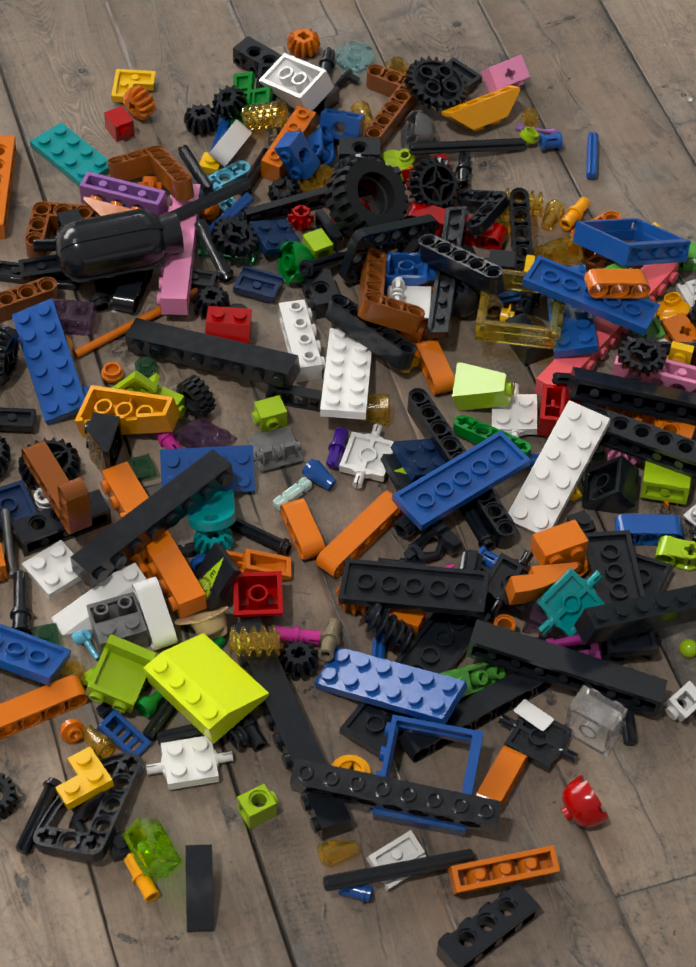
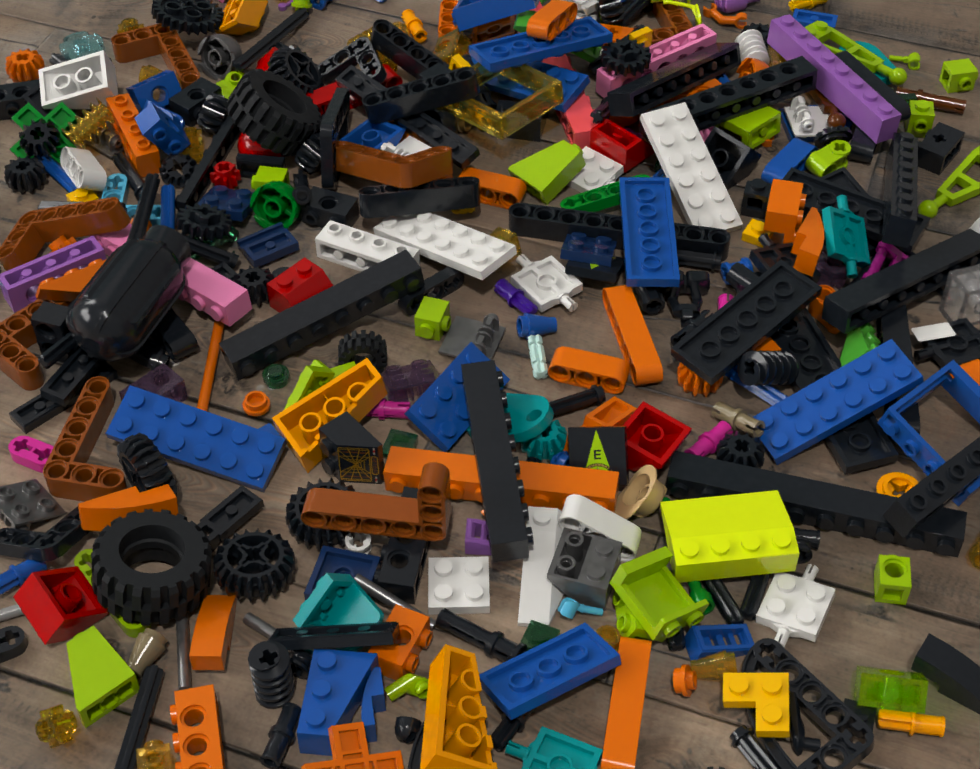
camera: 50 degrees left, 5 degrees down
(254, 641) = (713, 464): clear yellow piece -> none

